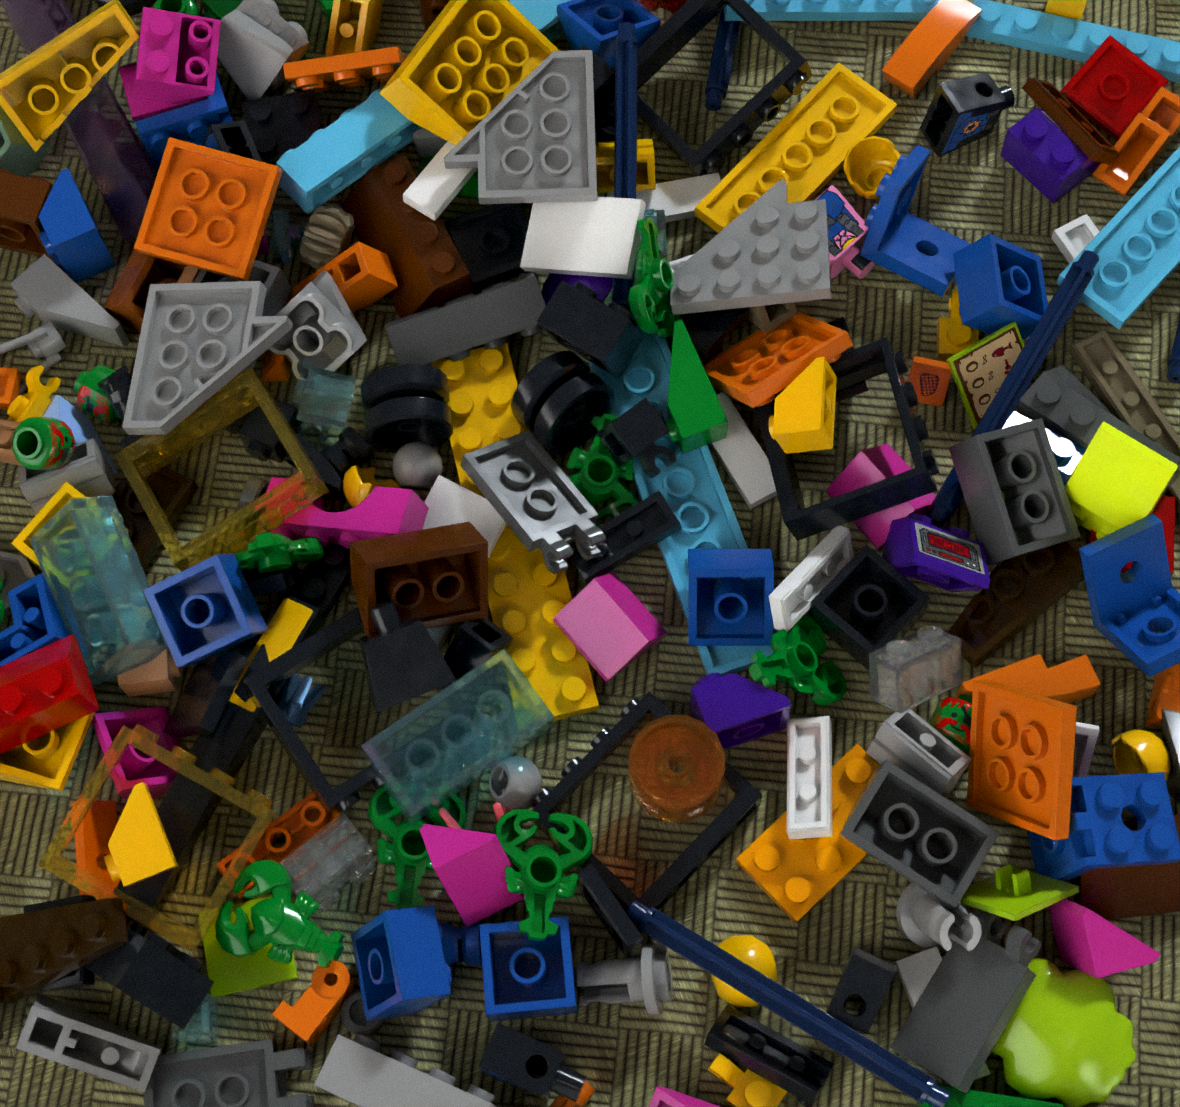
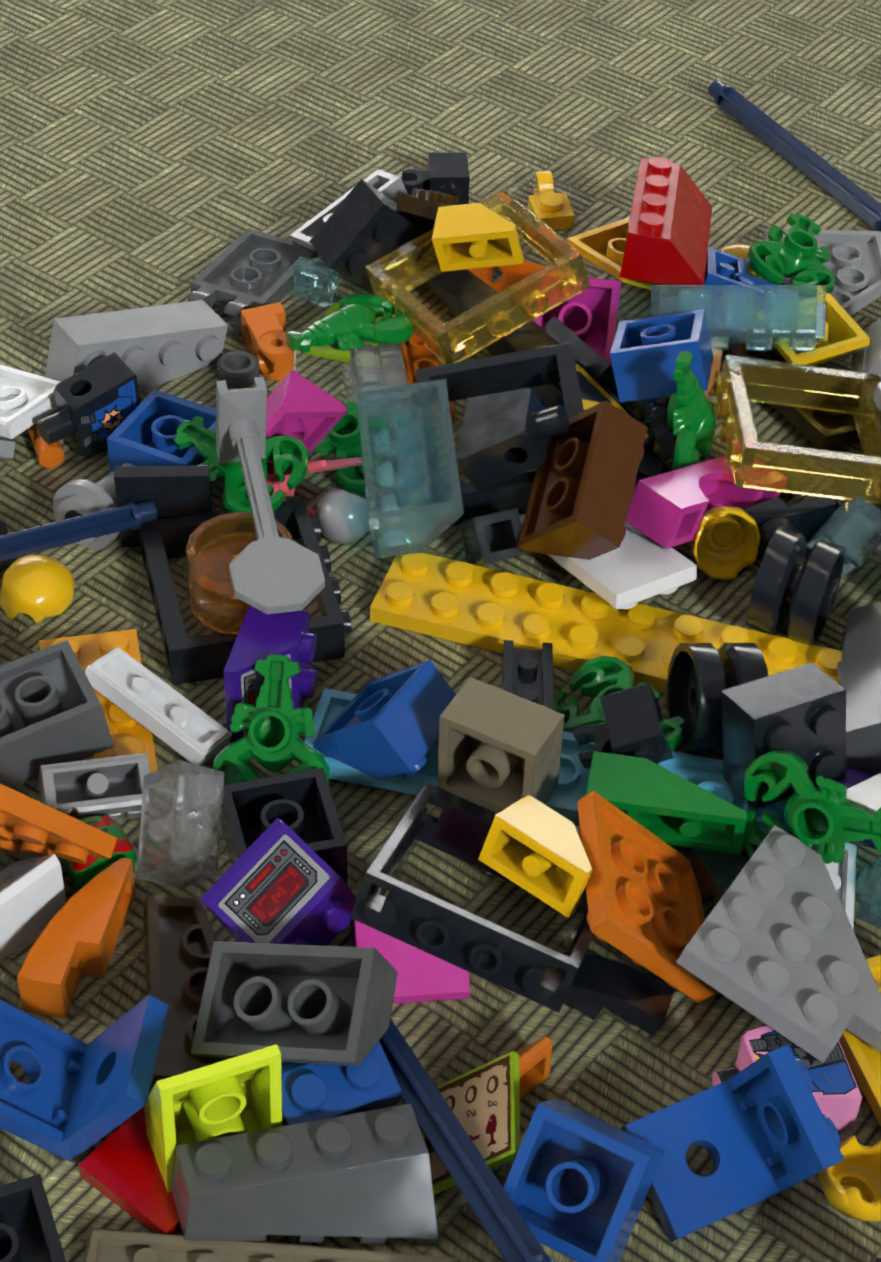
camera: 115 degrees right, 25 degrees down
(401, 962) = (239, 357): blue brick -> none
(417, 464) = (728, 586): light grey piece -> none
(535, 499) = (612, 619): dark grey tile -> none
(609, 625) = (449, 635): dark pink slope -> none
(688, 714) = (273, 570): none -> light grey piece
(722, 493) = (498, 747): none -> dark tan brick
(809, 578) = (353, 793): white tile -> none

